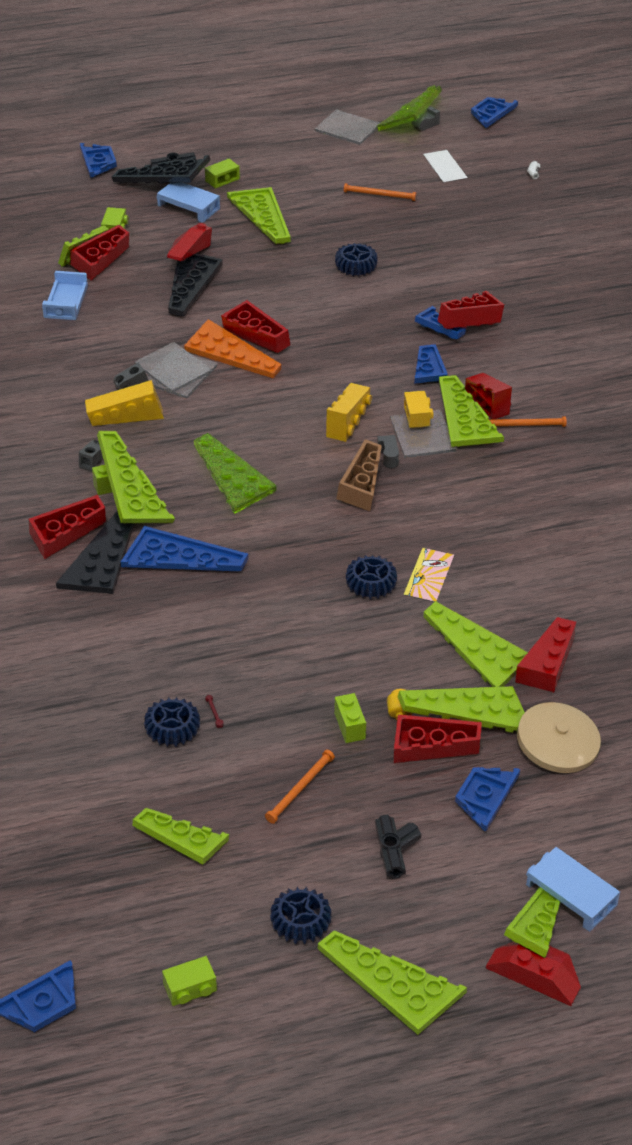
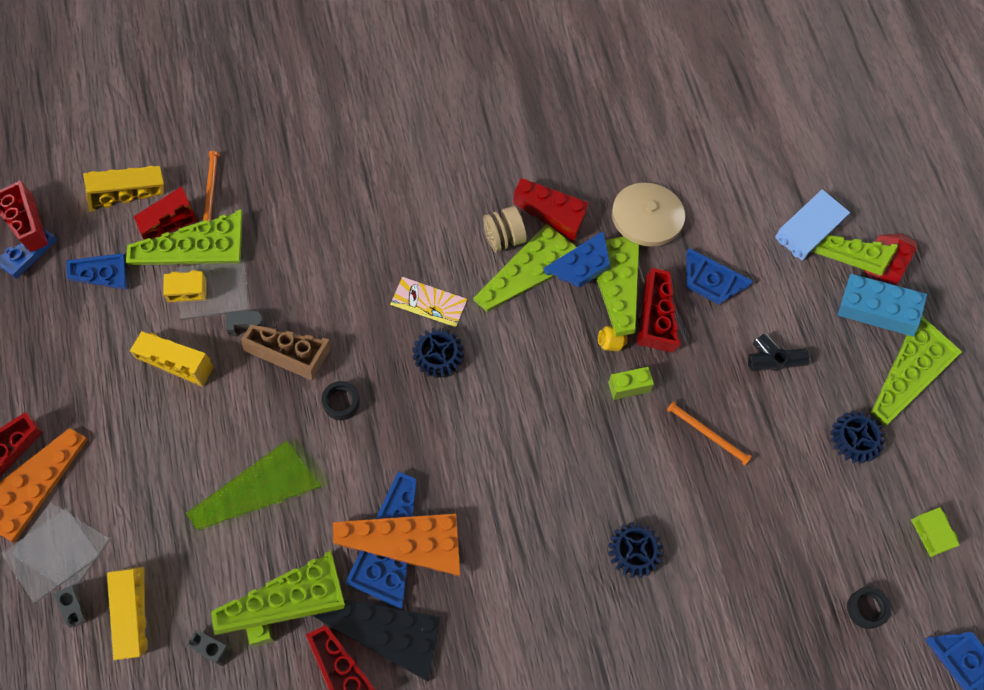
camera: 90 degrees left, 25 degrees up
(110, 926) = (881, 598): none -> black tyre
(180, 835) = (775, 537): lime wing -> none
(181, 563) = (412, 540): none -> orange wing
(219, 723) = (628, 506): dark red hinge -> none
(316, 506) = (343, 386): none -> black tyre
(468, 943) = (882, 305): none -> dark azure brick
(484, 675) = (582, 262): none -> blue wing
(513, 613) = (507, 227): none -> tan wheel
(514, 364) = (122, 185): none -> yellow wedge

